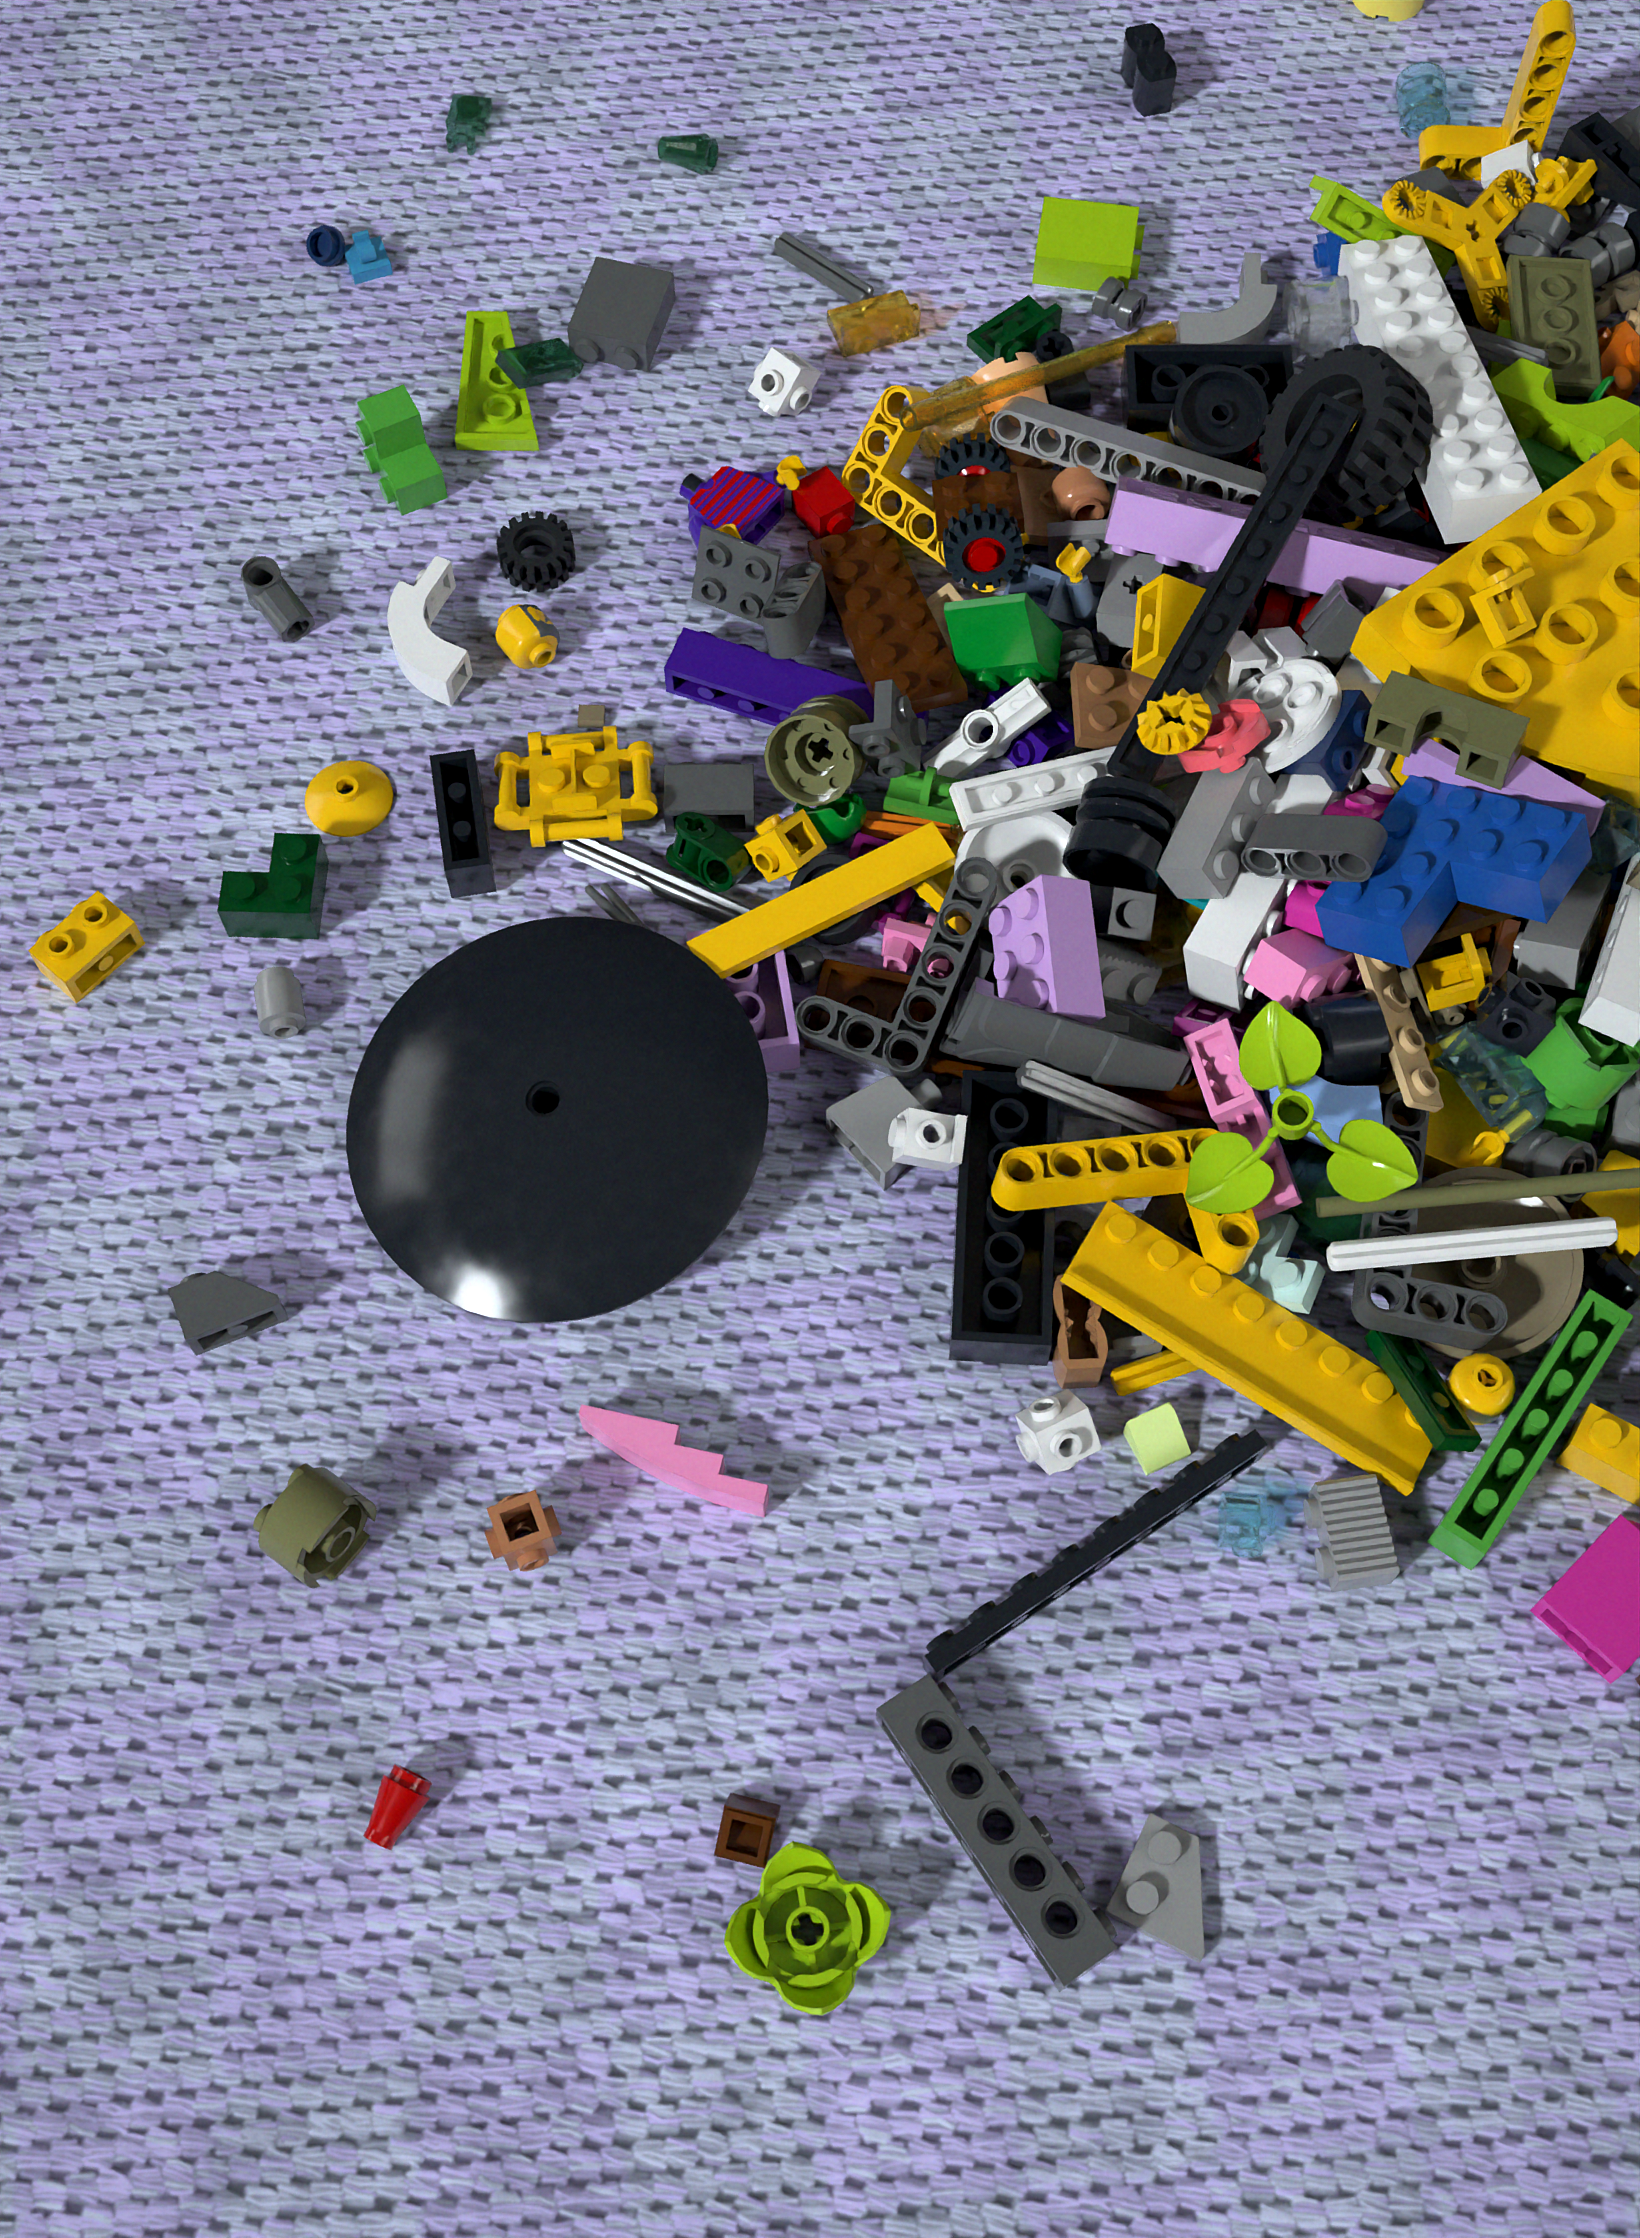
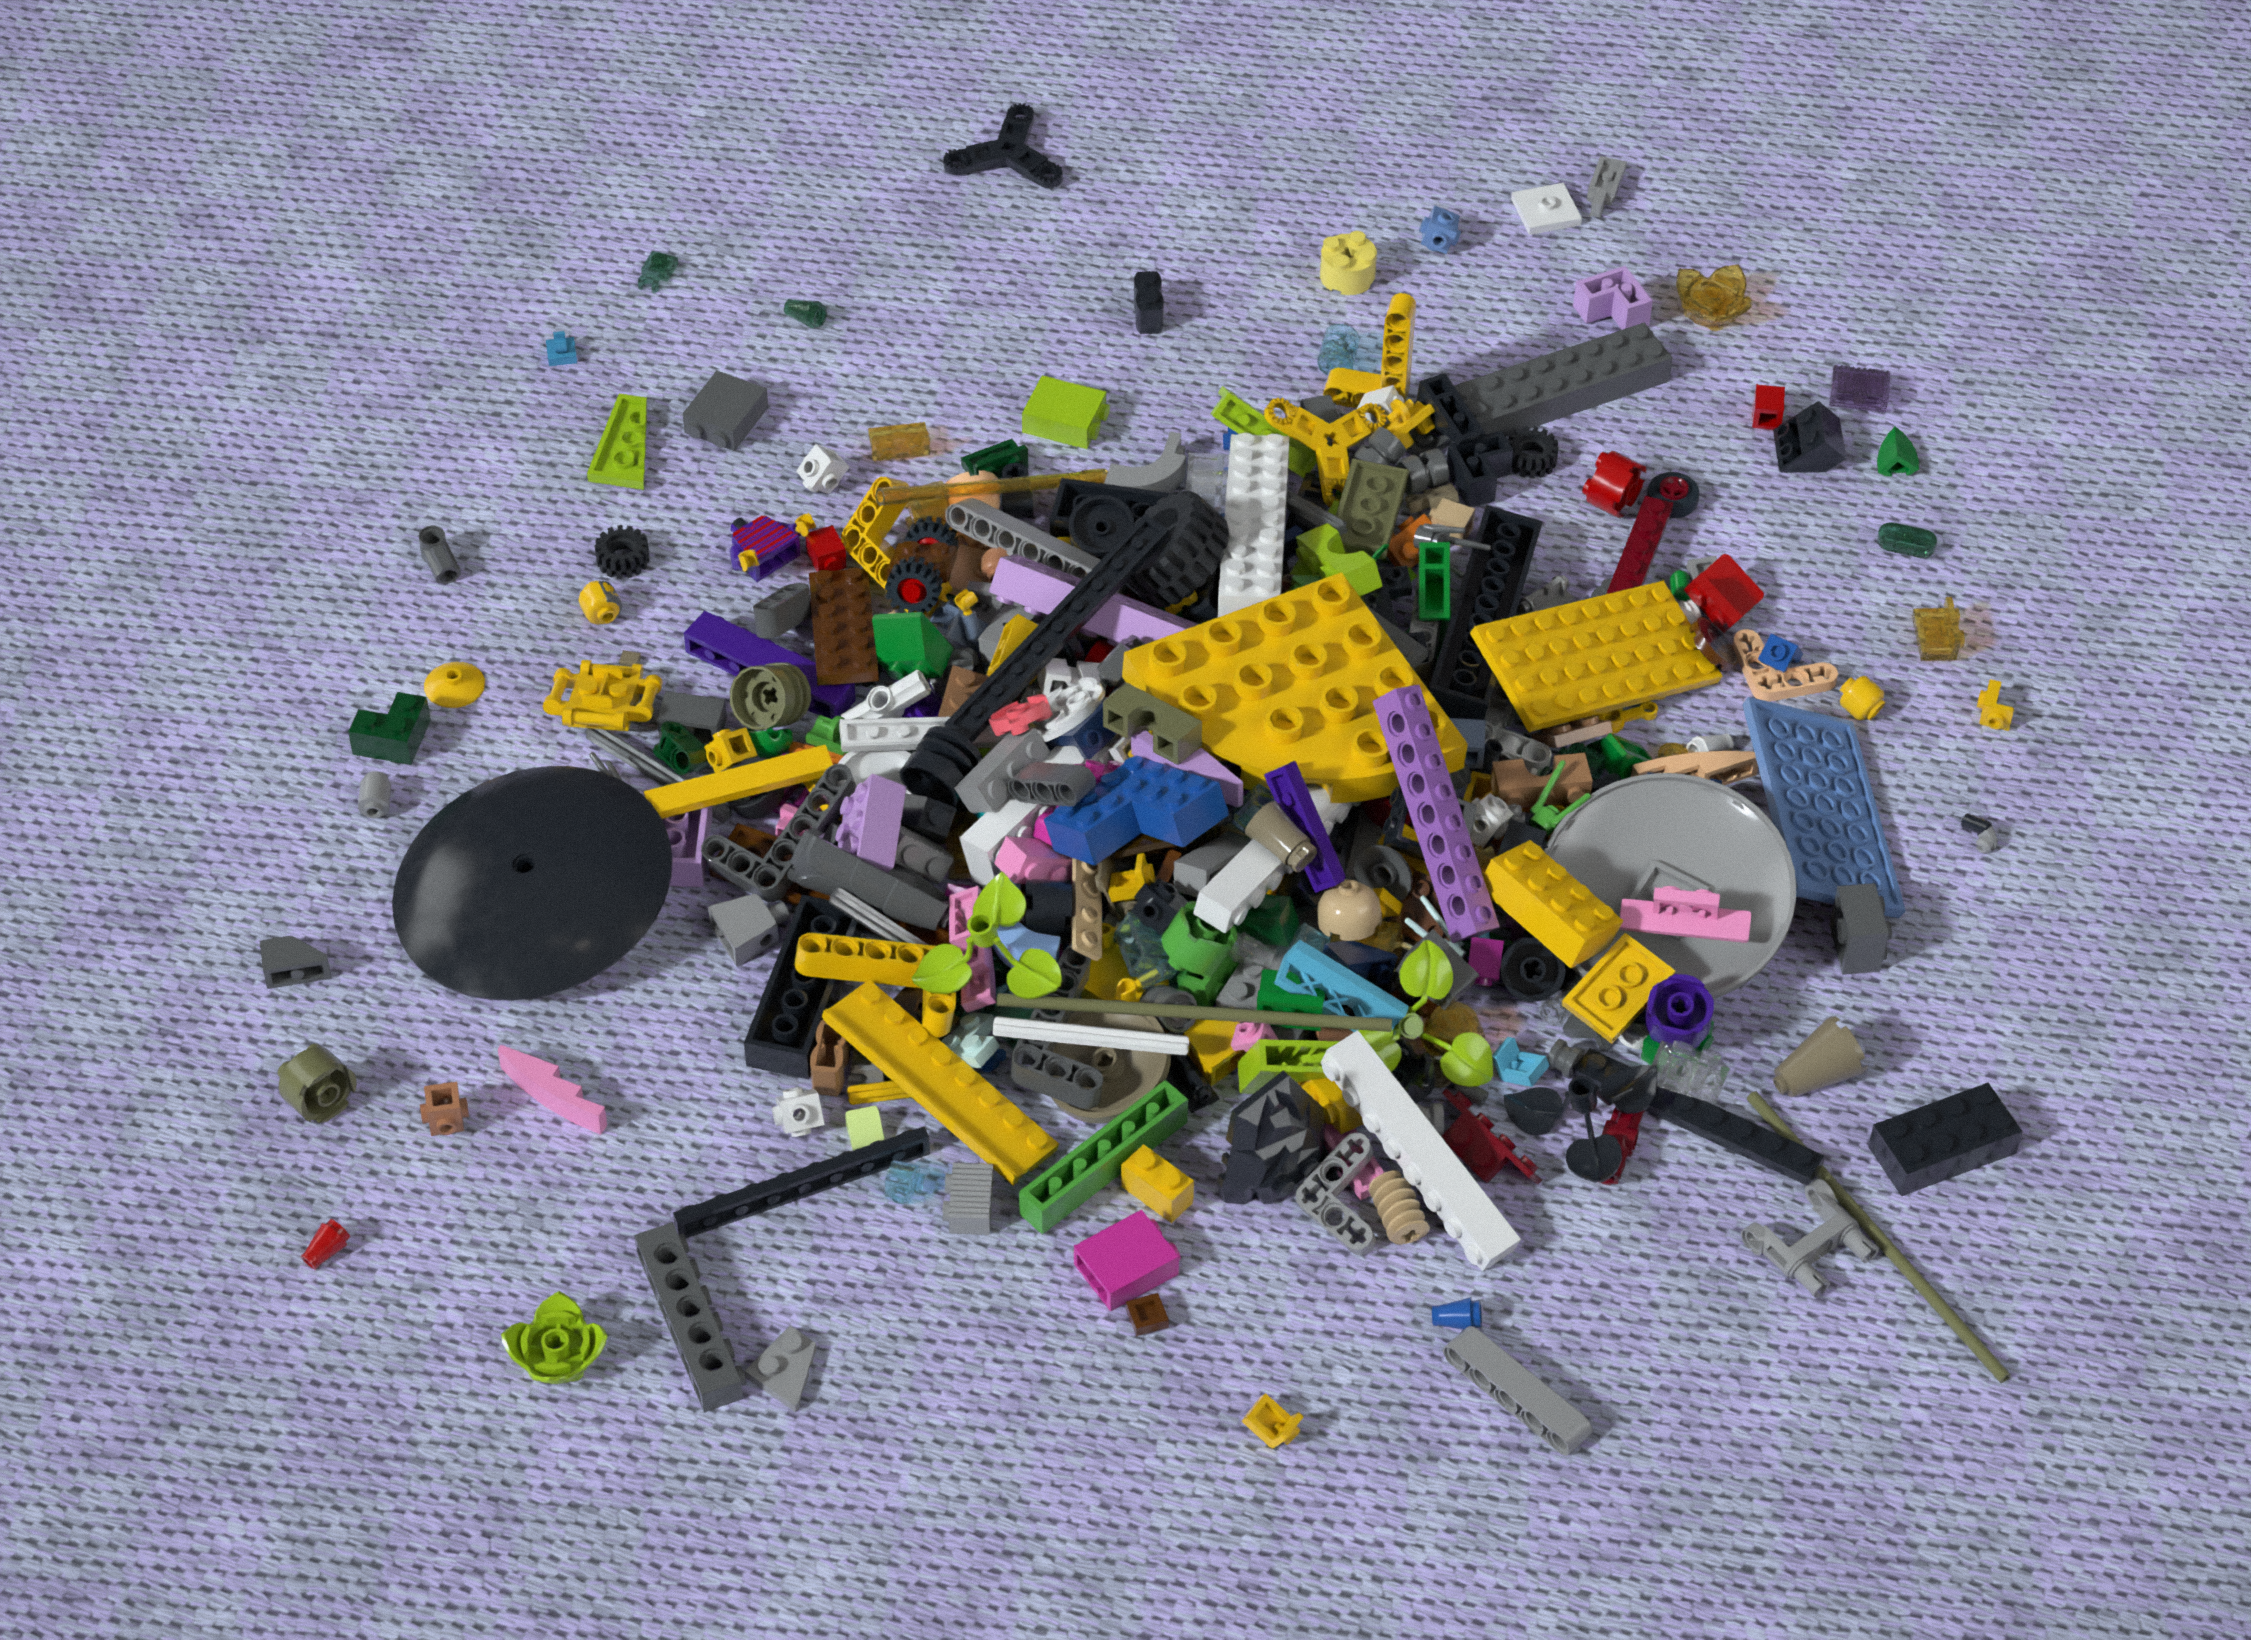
camera: 10 degrees right, 15 degrees down
(86, 946) = (259, 743): yellow brick -> none
(326, 245) = (534, 337): dark blue plate -> none
(399, 451) = (546, 474): bright green brick -> none
(425, 659) = (528, 607): white arch -> none
(462, 823) = (523, 707): black brick -> none
(539, 363) = (658, 433): clear green plate -> none
(734, 574) = (747, 581): dark grey hinge -> none
(747, 1830) = (533, 1293): reddish brown slope -> none
(804, 963) = (724, 824): dark grey hinge -> none
(822, 268) = (875, 401): dark grey axle -> none
(896, 735) = (816, 689): dark grey bracket -> none
(913, 1149) = (765, 939): white brick -> none
(1119, 303) = (1075, 453): dark grey wheel -> none
(1174, 737) = (983, 708): yellow gear -> none
(1424, 1392) = (1041, 1123): dark green tile -> none
(1482, 1387) = (1077, 1126): yellow head -> none
(1503, 606) = (1210, 655): yellow bracket -> none

